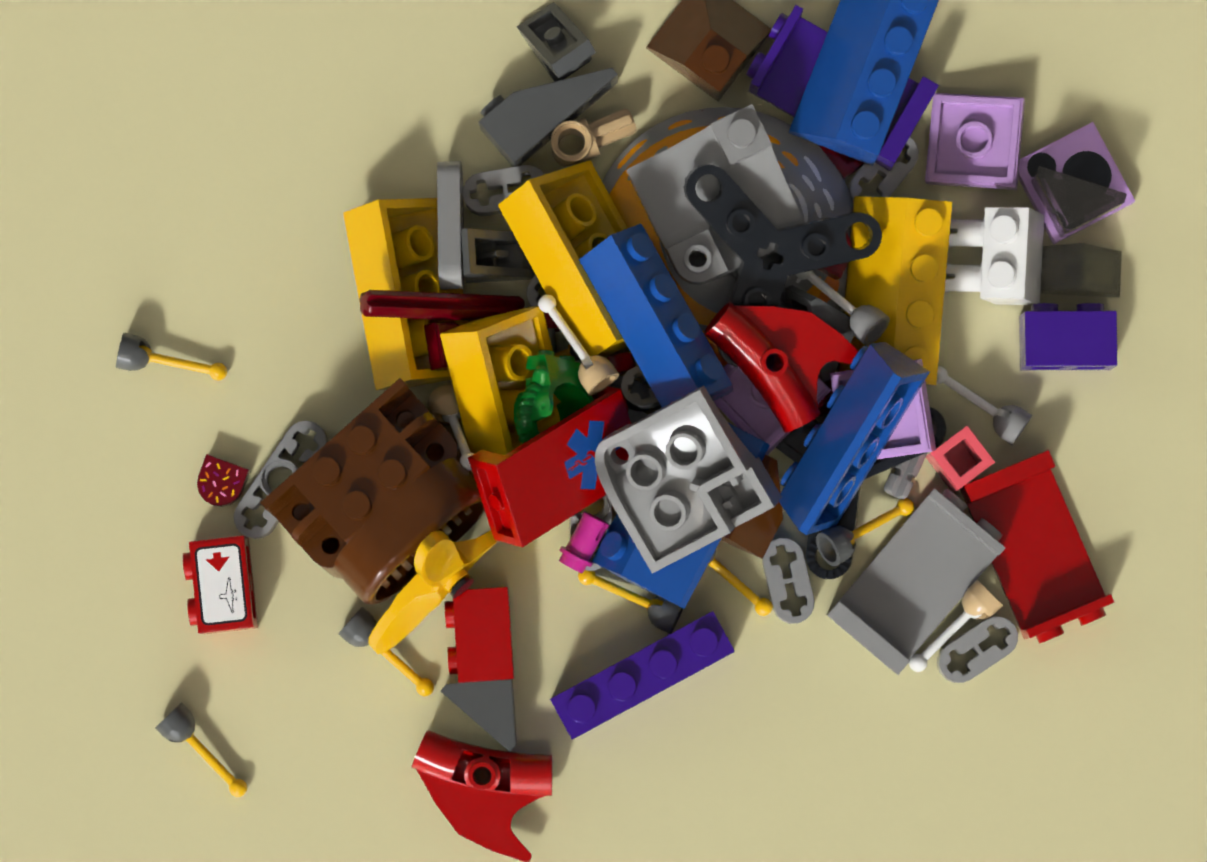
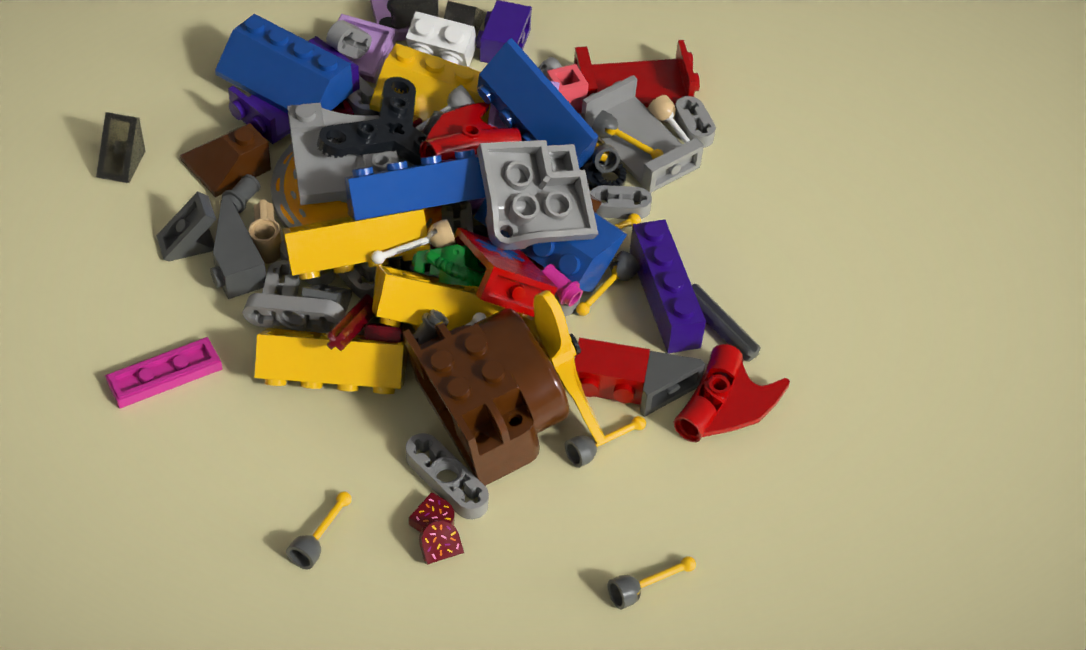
camera: 80 degrees left, 35 degrees down
(183, 499) = (439, 541): none -> dark red tile
(221, 585) = (519, 528): brick -> none
(340, 98) = (163, 372): none -> dark pink tile
(447, 405) = (426, 330): none -> dark grey pin
(613, 757) = (725, 325): none -> dark grey axle
(647, 82) = (243, 191): none -> dark grey pin
(909, 532) = (607, 126): none -> hinge
(946, 132) = (348, 39): none -> light grey beam

